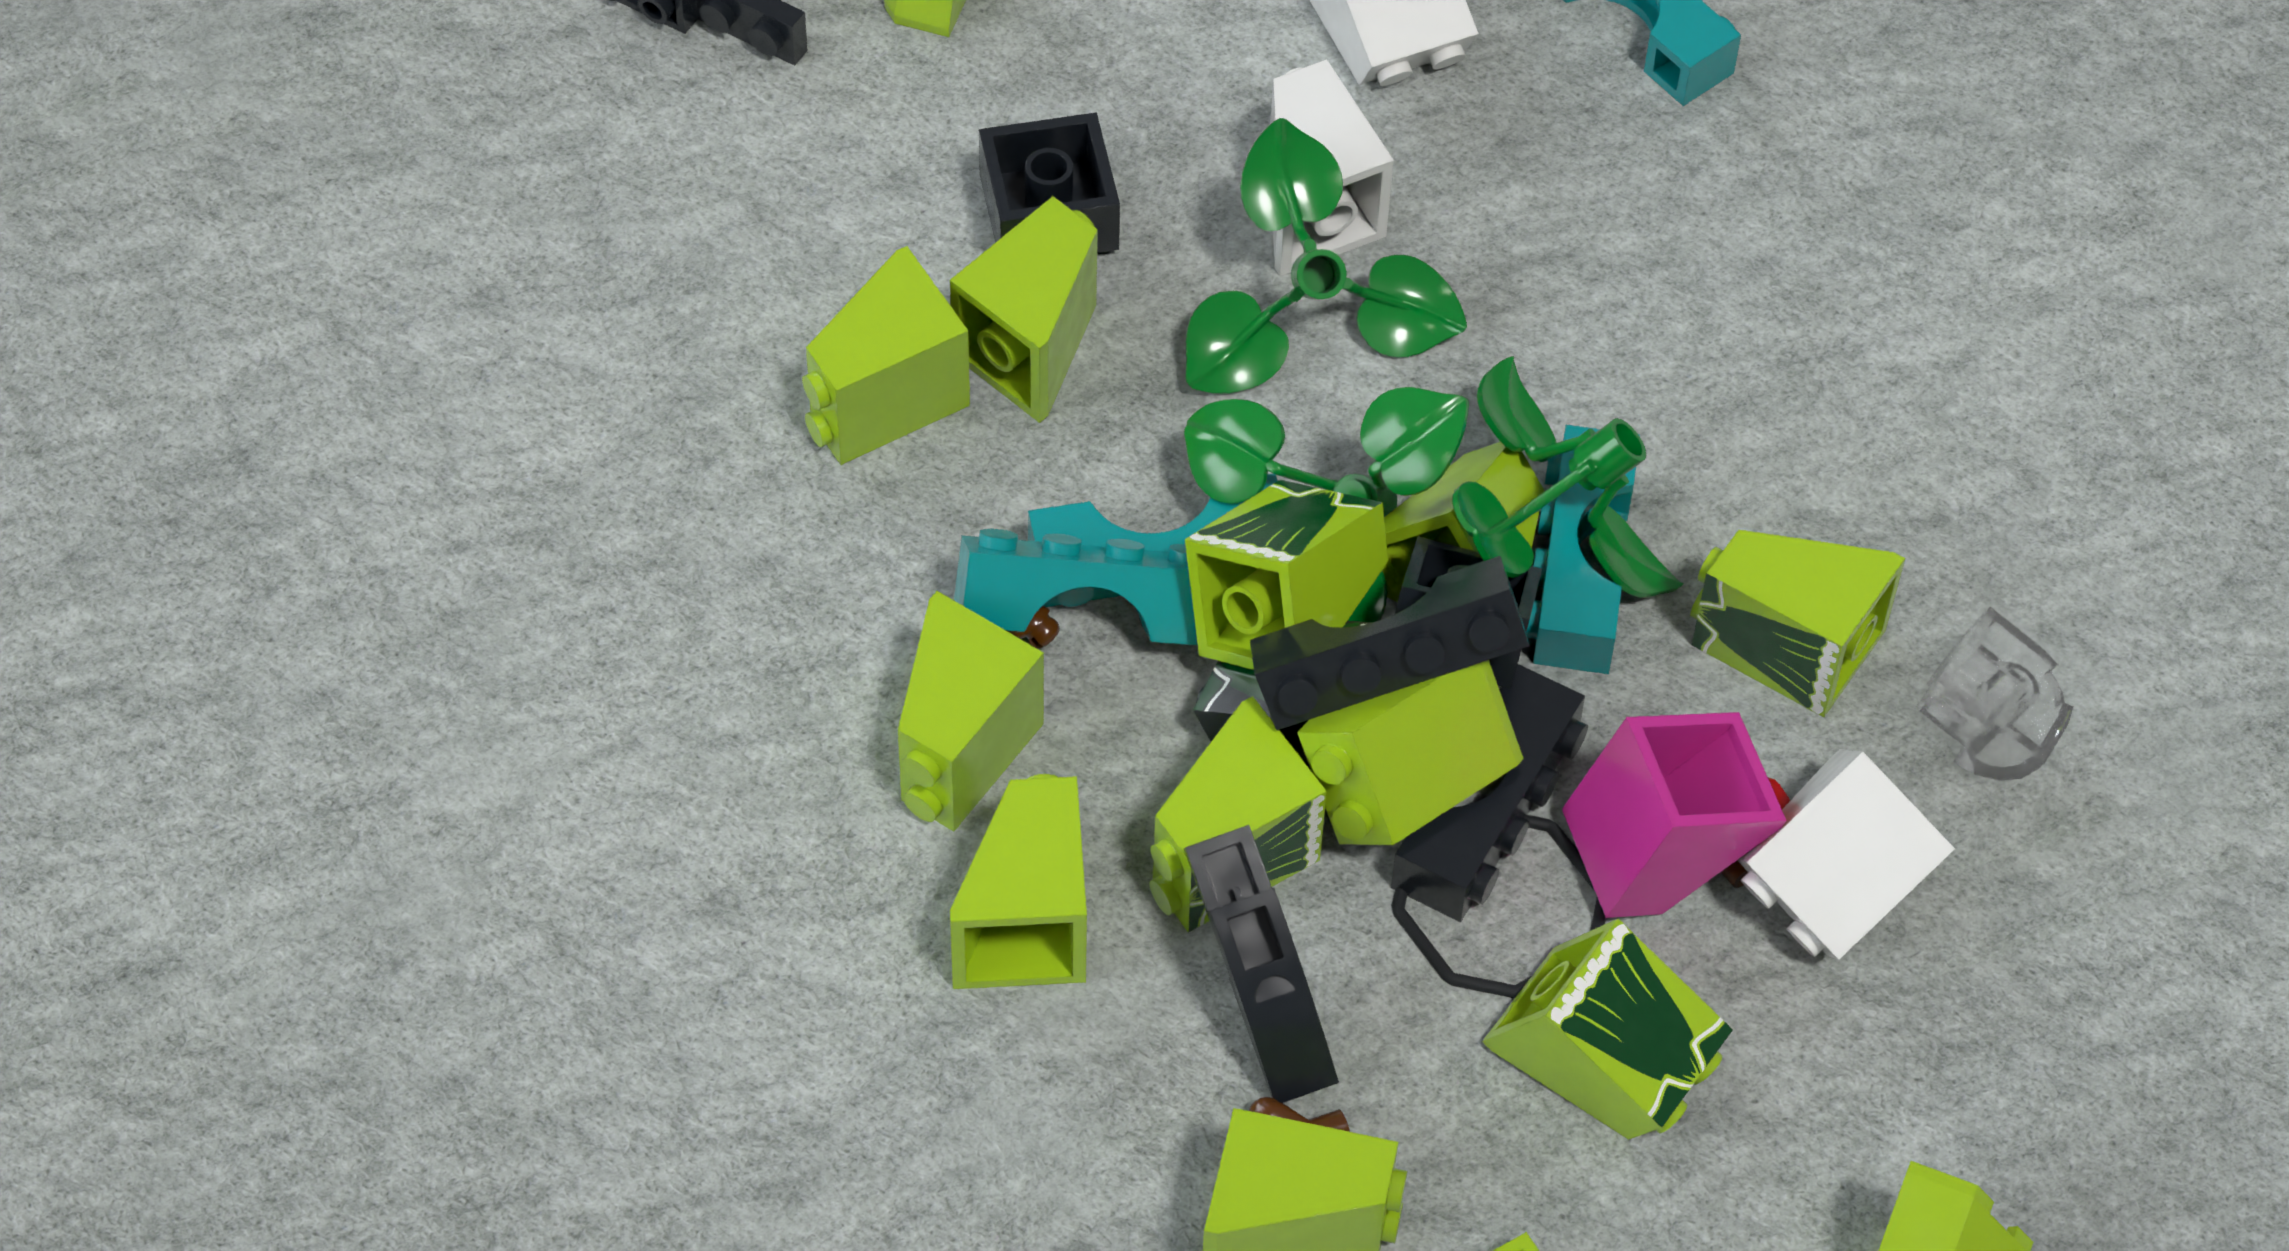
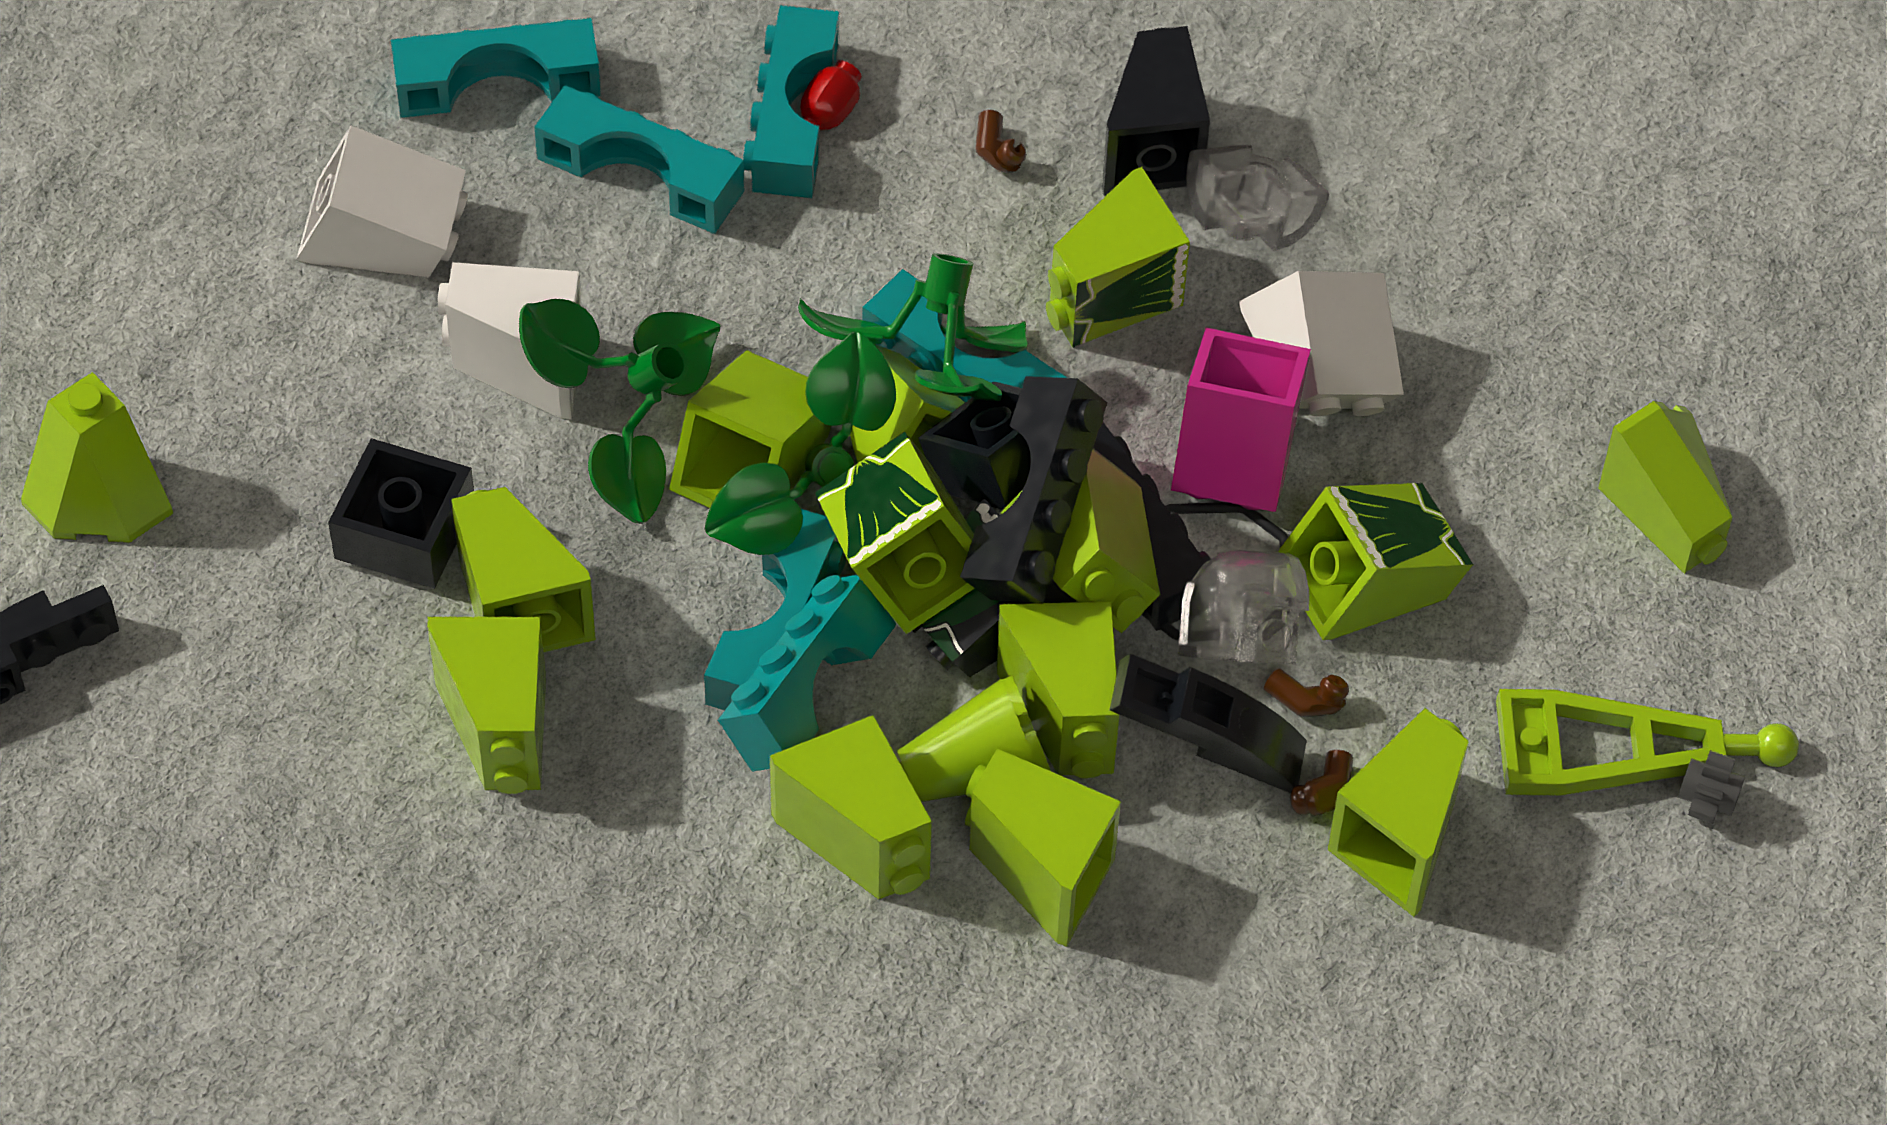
camera: 60 degrees left, 0 degrees up
(1118, 782) = (950, 751): none -> lime cone
(1325, 390) = (744, 418): none -> lime slope
(1395, 1063) = (1310, 700): none -> reddish brown arm
(1447, 938) = (1244, 608): none -> clear brick
(1626, 221) = (588, 133): none -> teal arch
(1821, 282) = (831, 95): none -> red plant
(1856, 228) = (785, 145): none -> teal arch
(1882, 448) = (993, 148): none -> reddish brown arm
(2018, 549) = (1156, 111): none -> black slope

